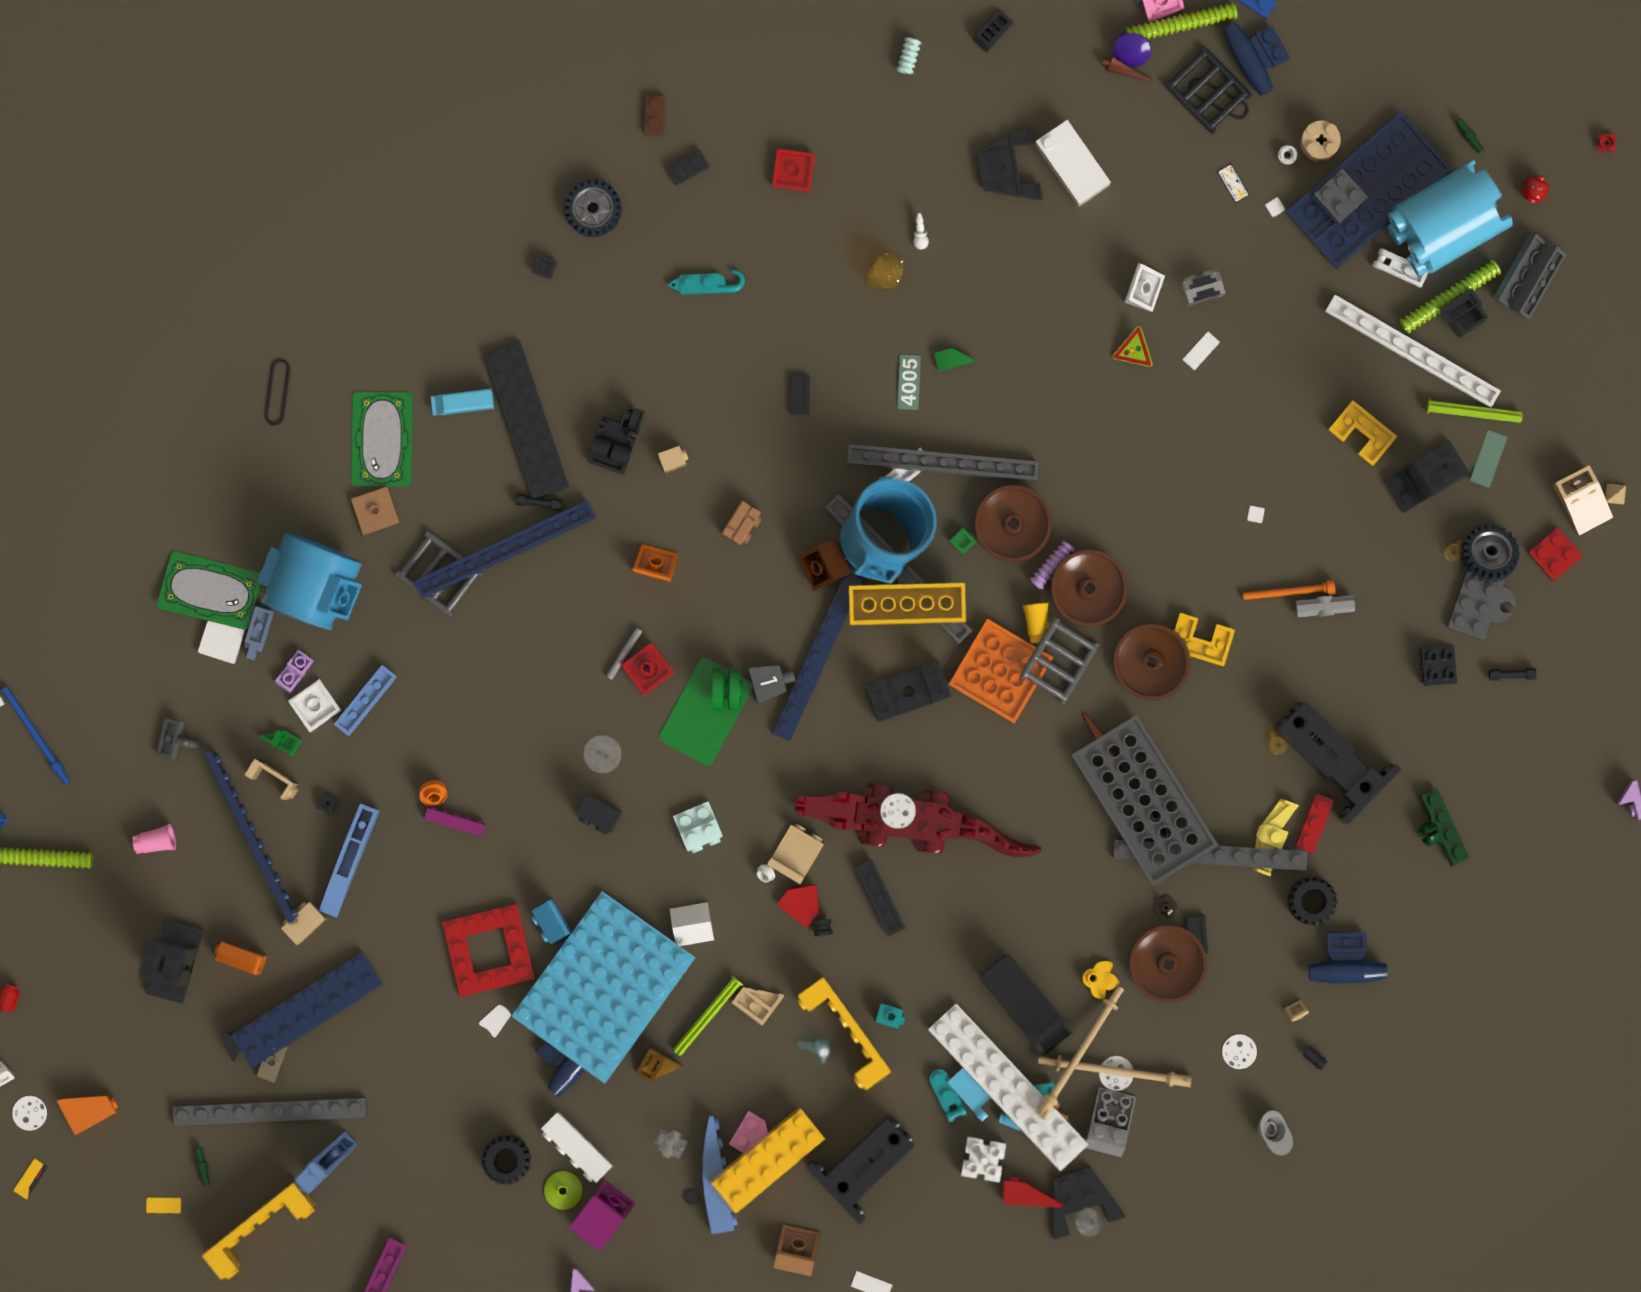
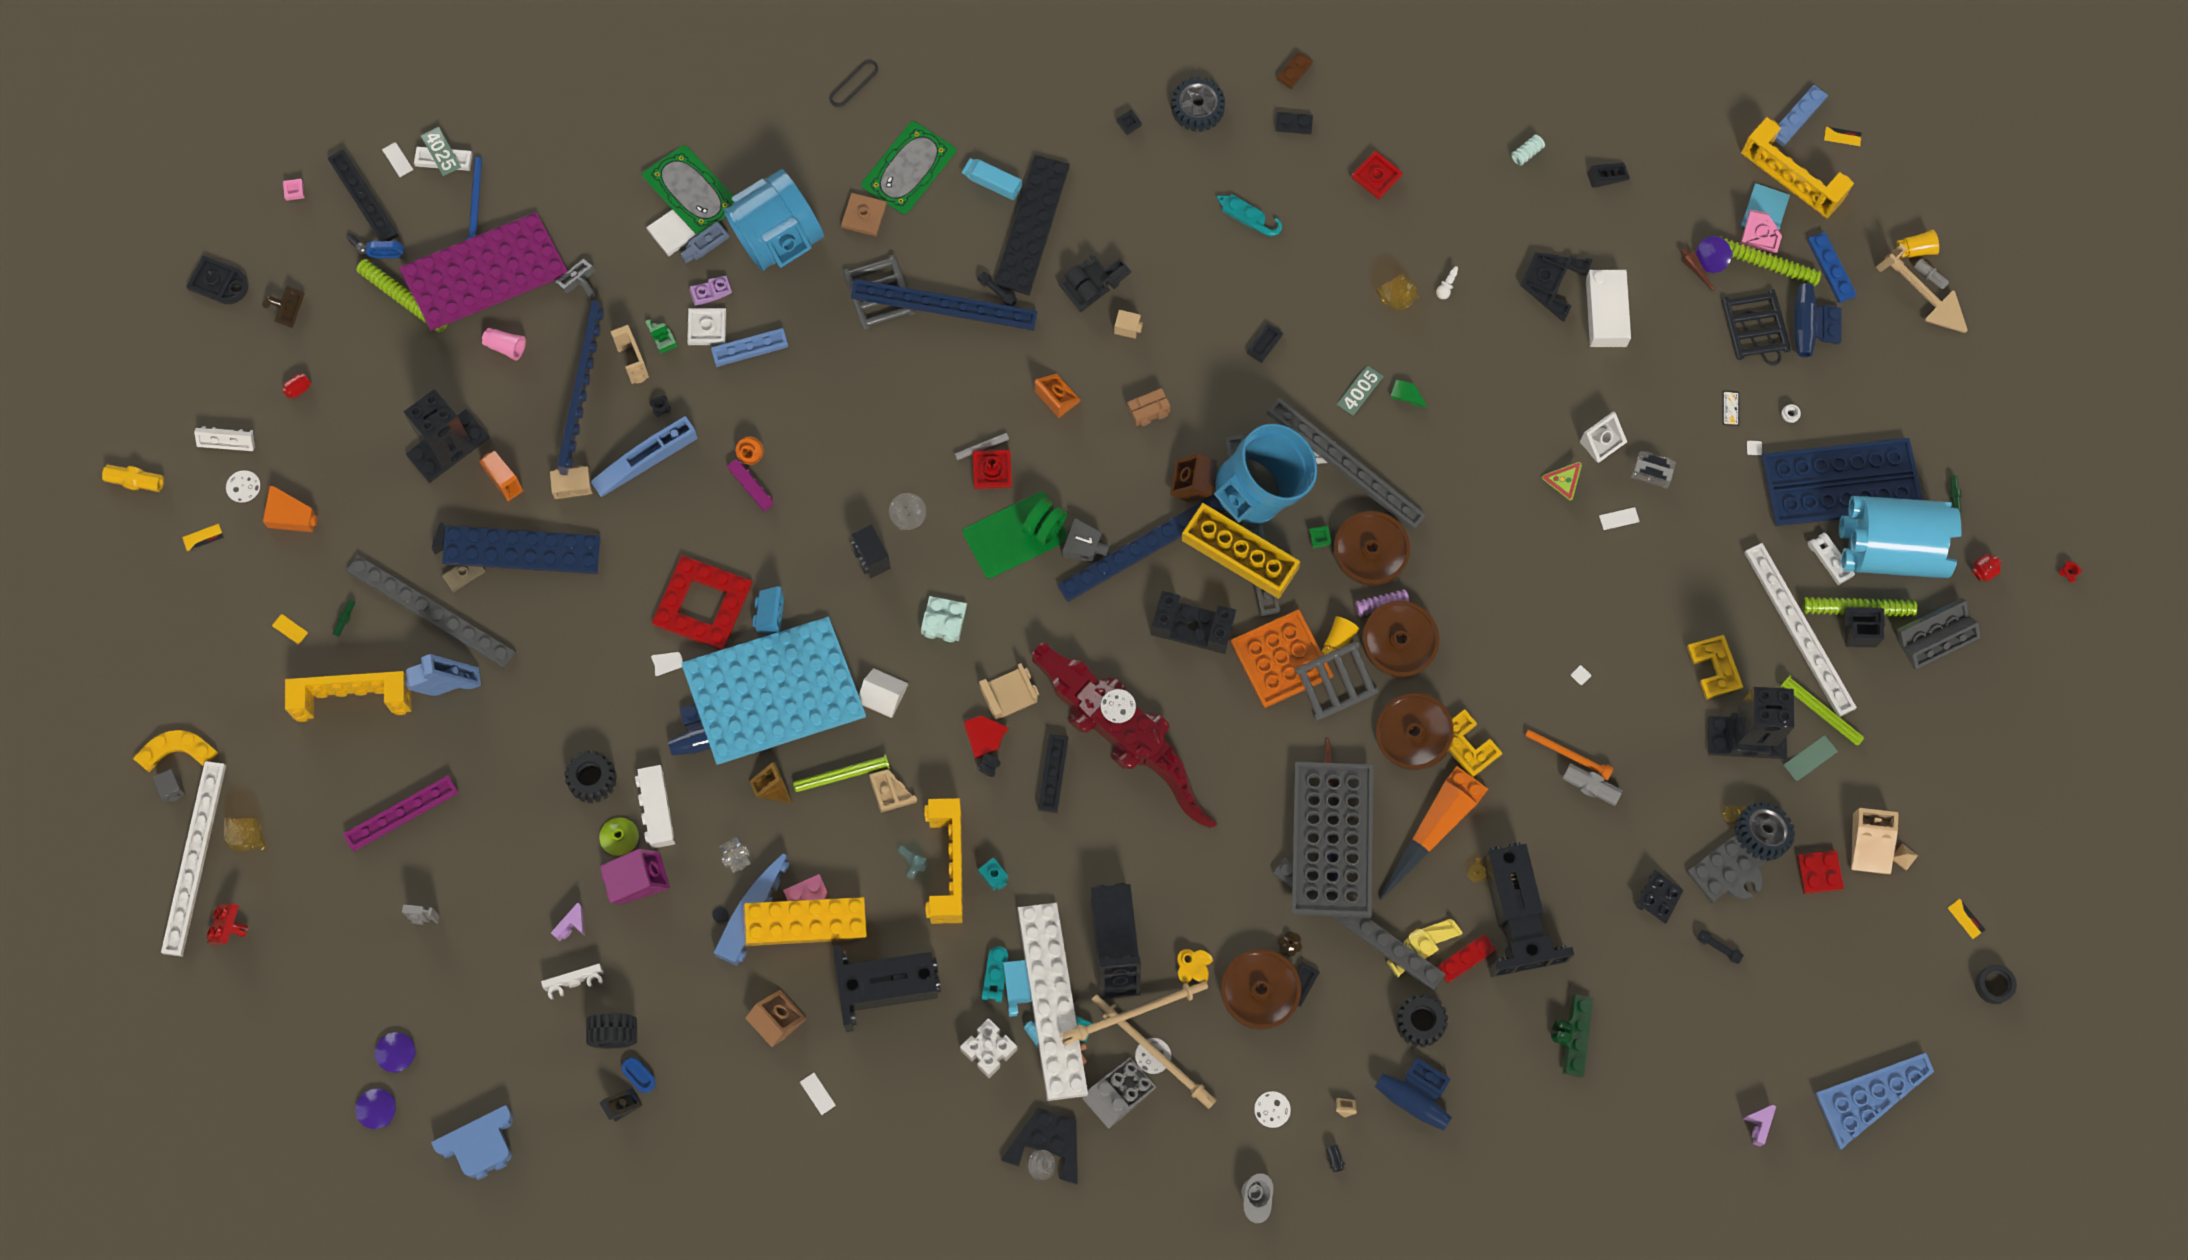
camera: 25 degrees right, 15 degrees down
(89, 789) = (483, 271): none -> magenta plate
(765, 873) = (972, 690): white plate -> none
(1023, 1193) = (1000, 1099): red slope -> none
(1221, 700) = (1454, 801): none -> orange plate
(1312, 148) = (1826, 417): tan brick -> none
(1339, 197) = (1816, 467): dark grey brick -> none

